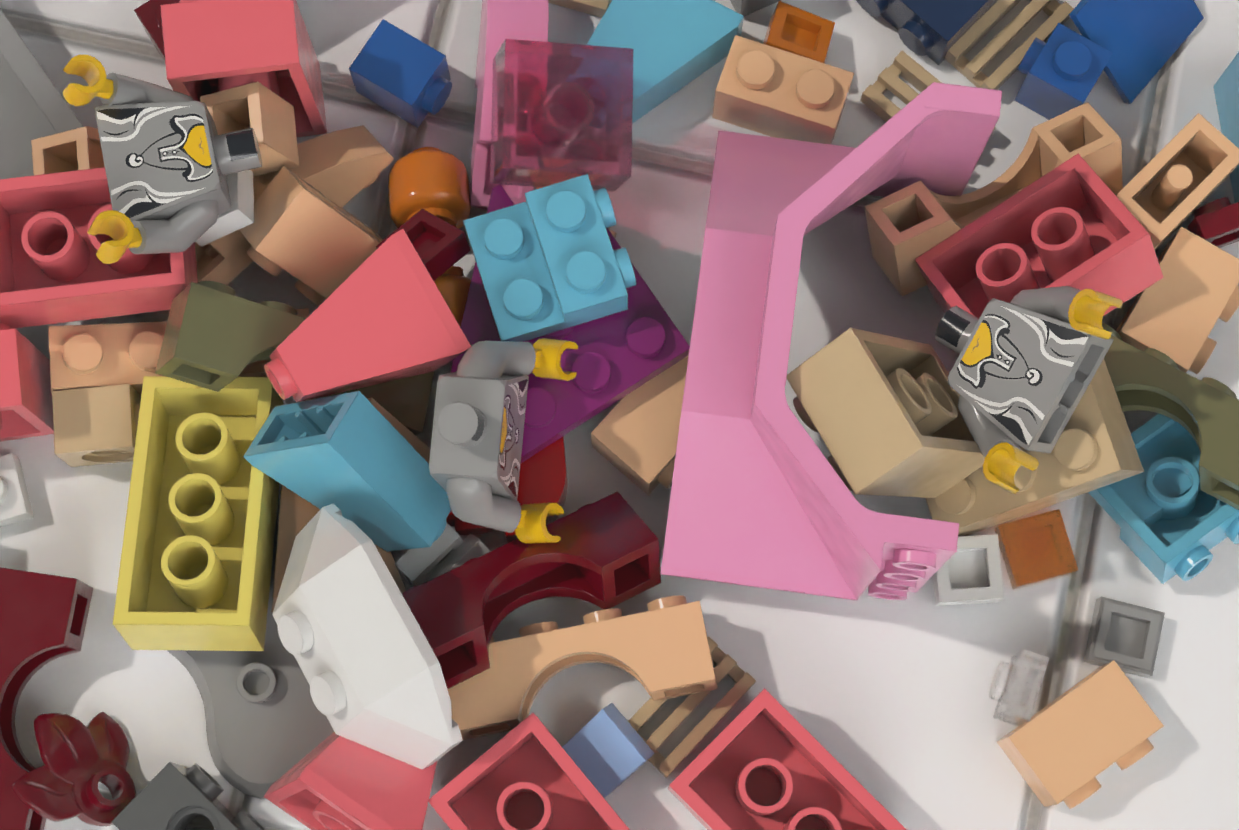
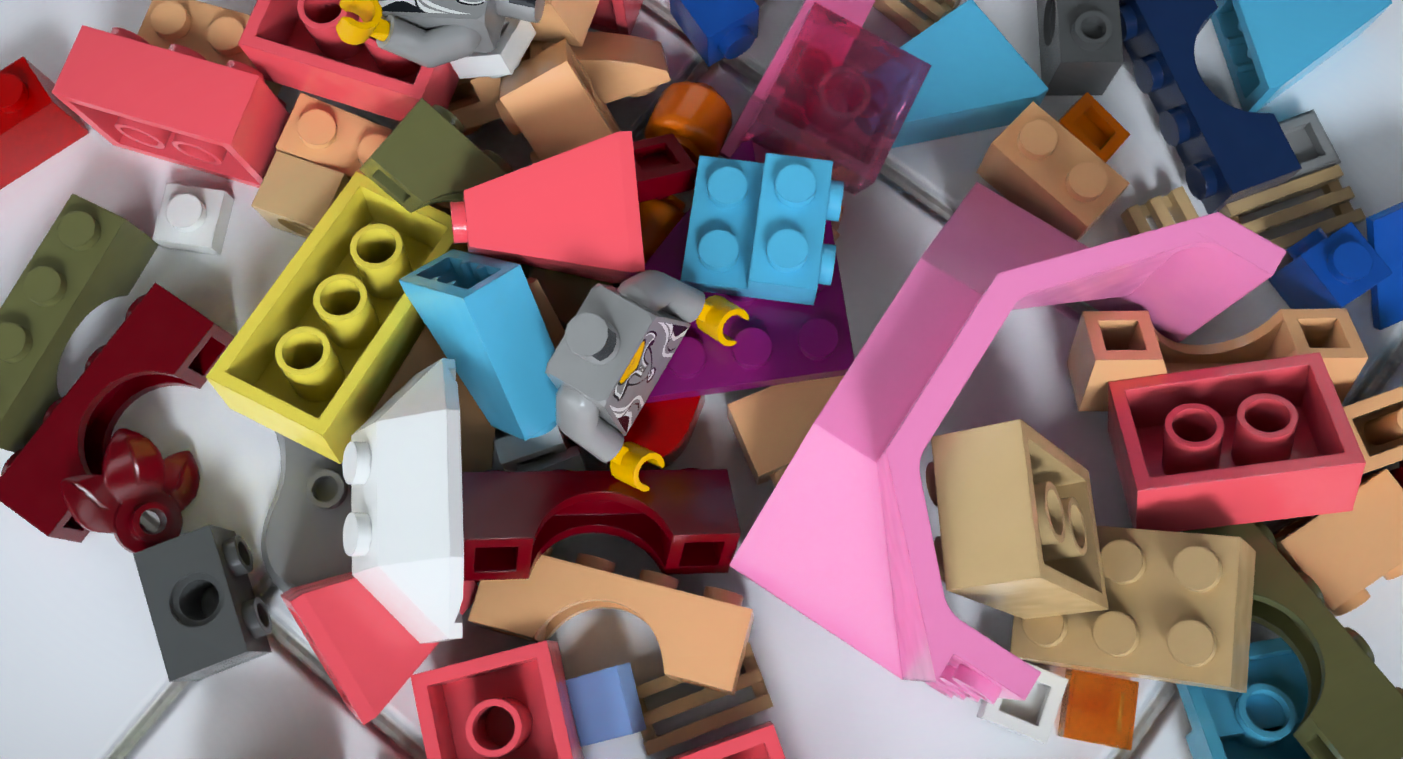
camera: 30 degrees right, 0 degrees up
(1024, 370) = (1179, 541): light grey torso -> none

